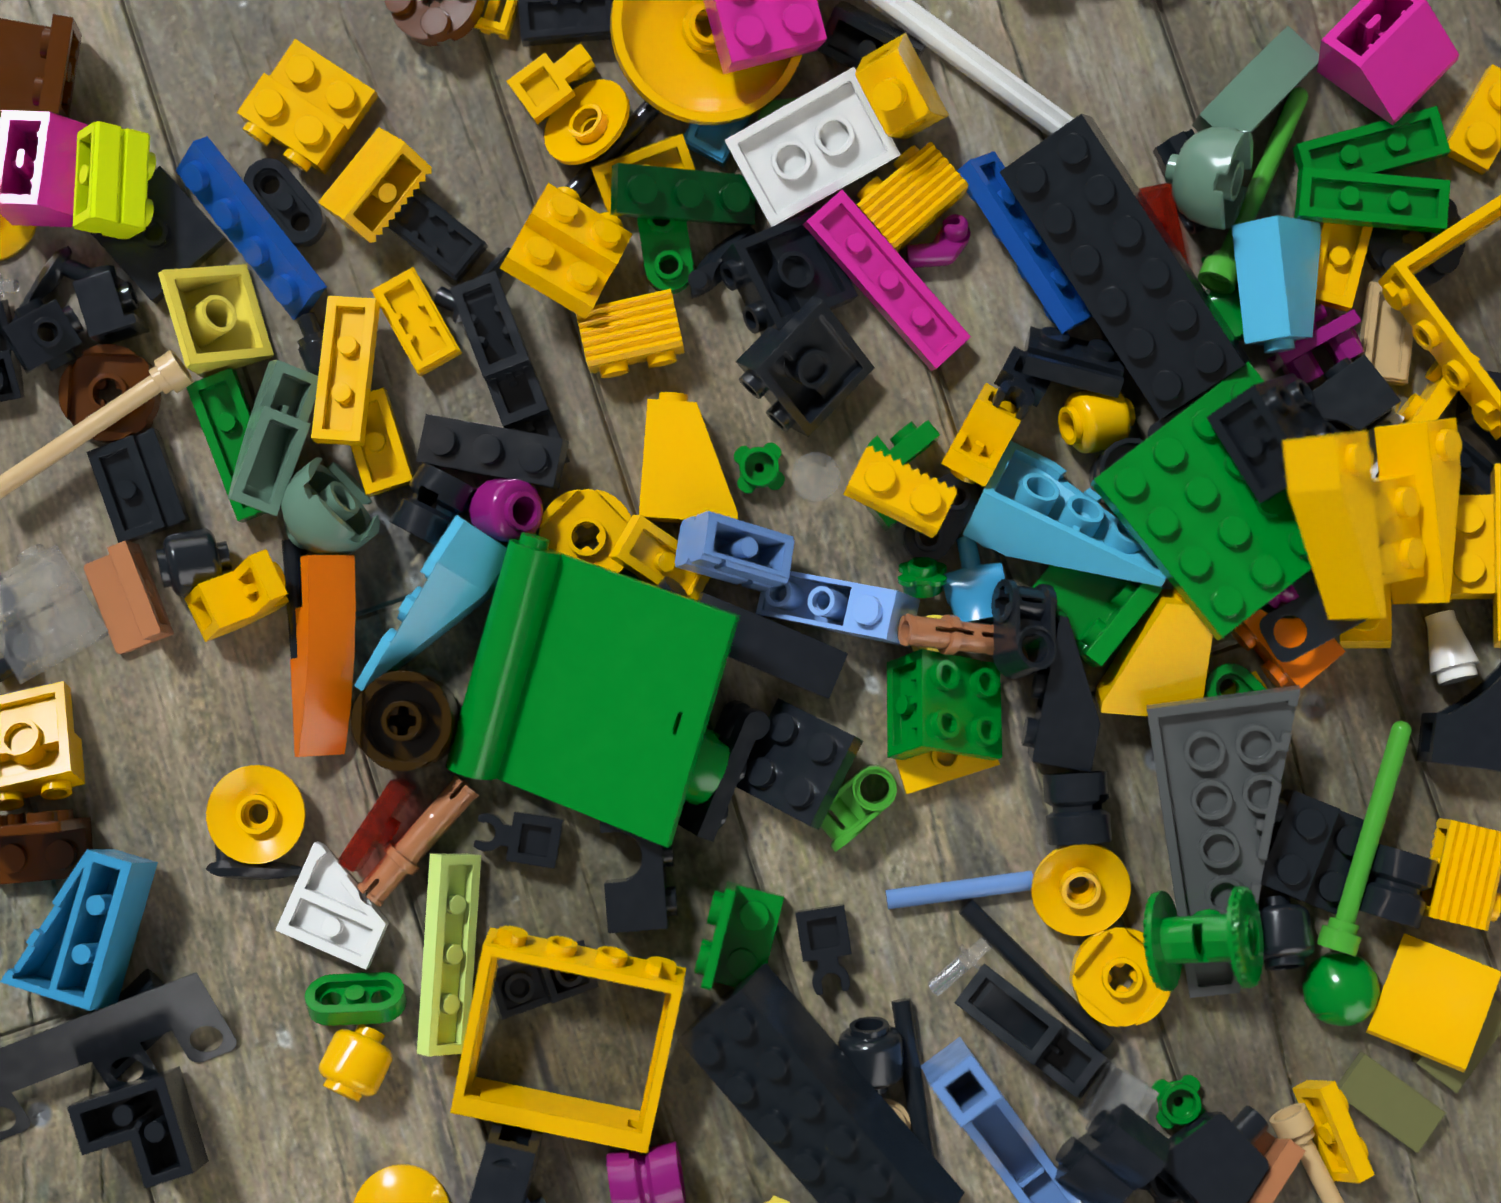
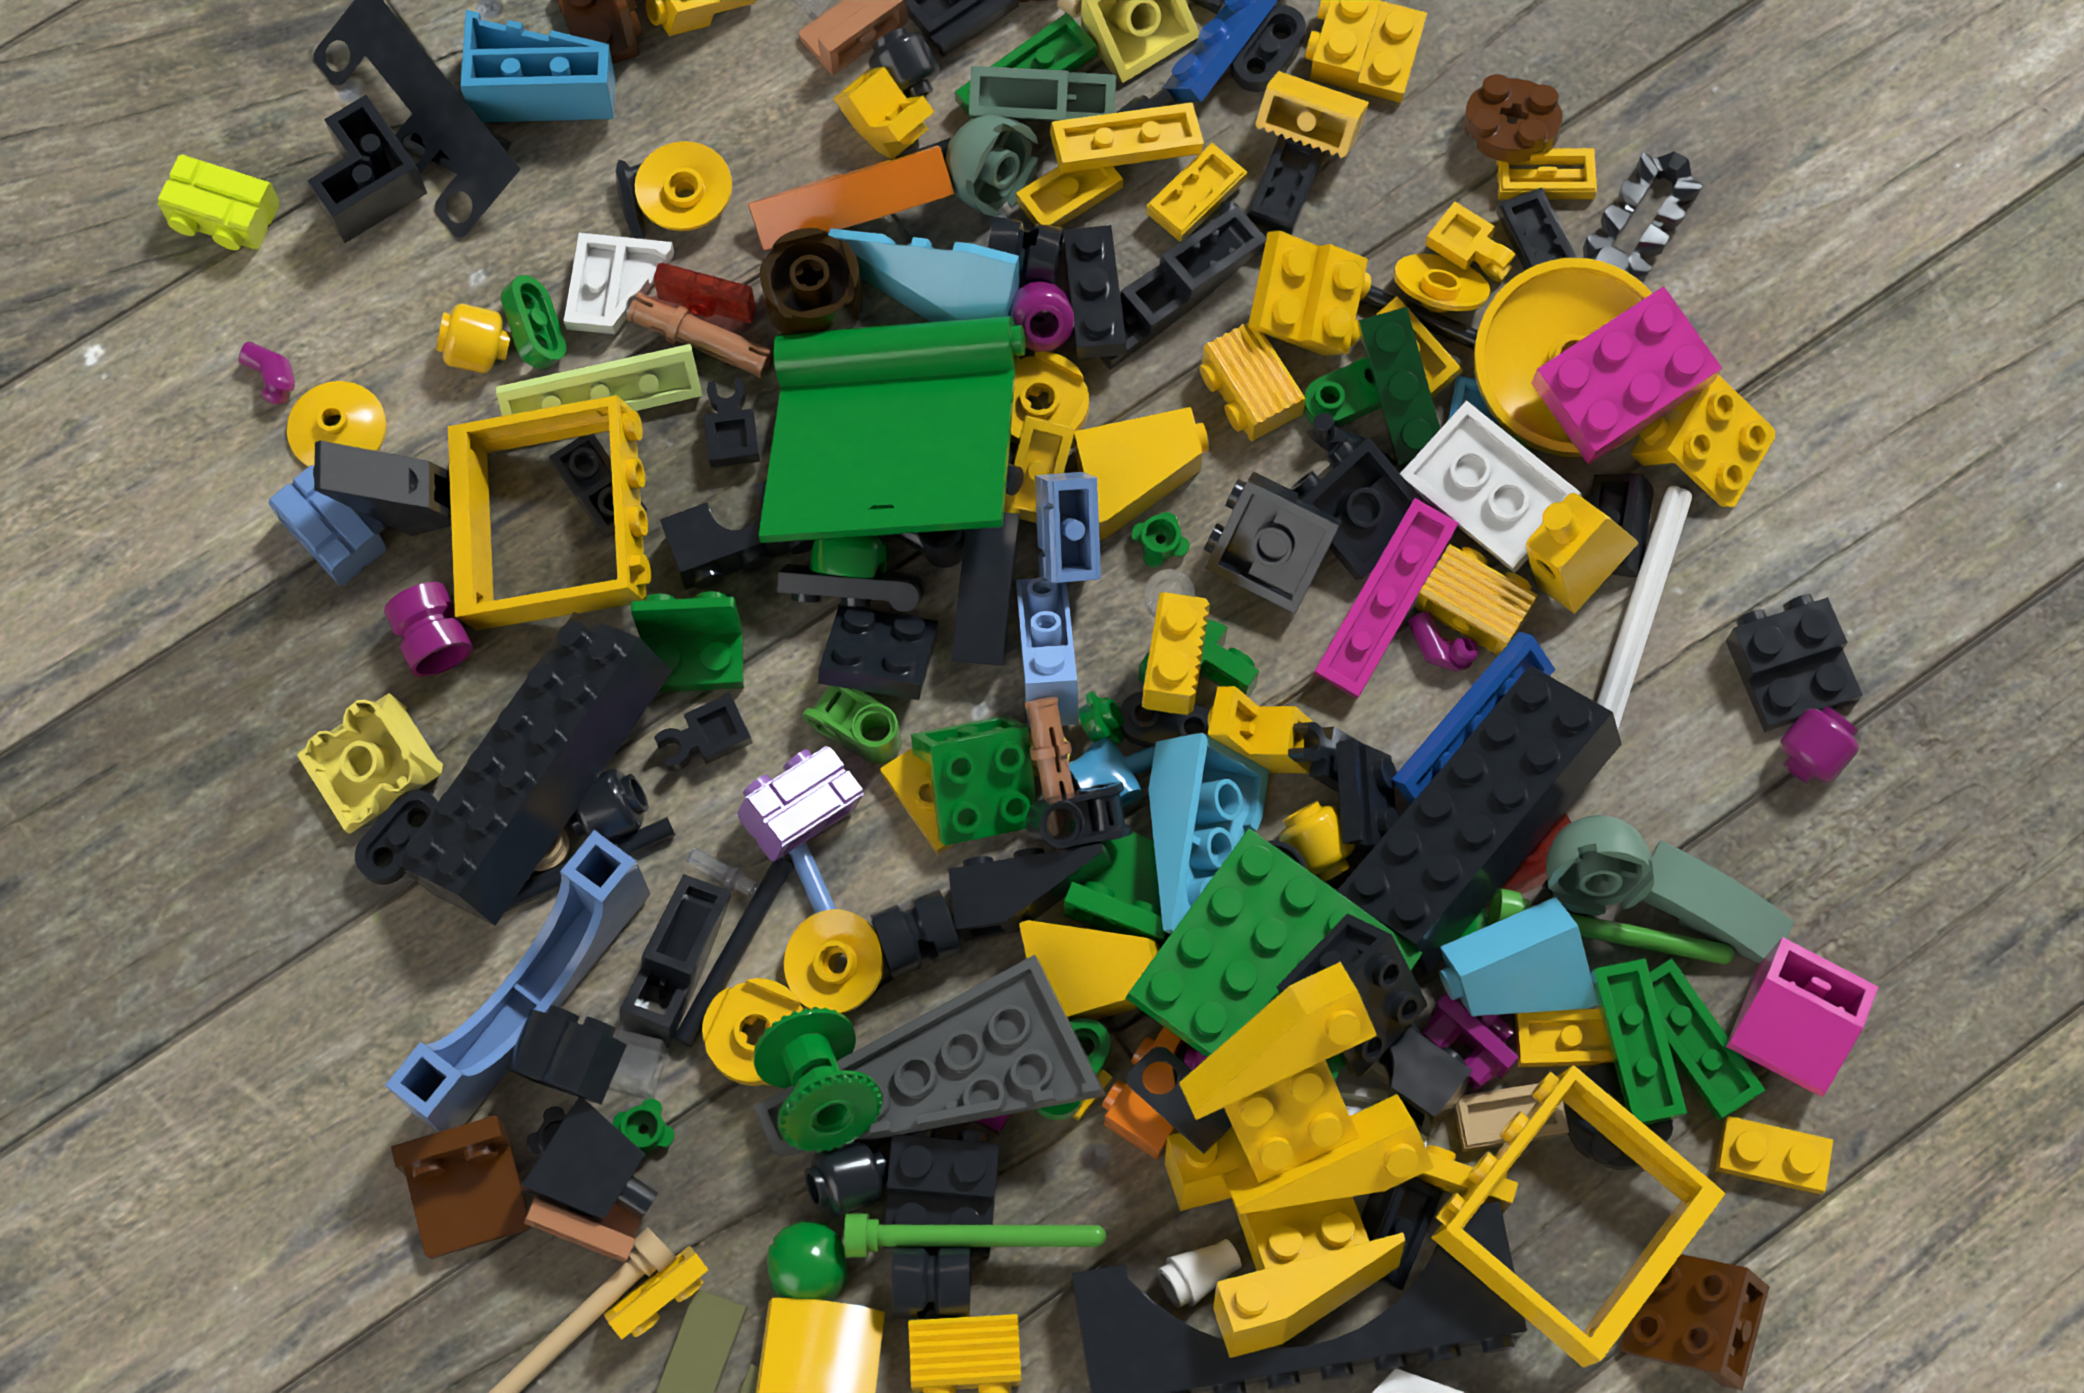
camera: 70 degrees right, 15 degrees down
(924, 878) = (798, 802): none -> brick

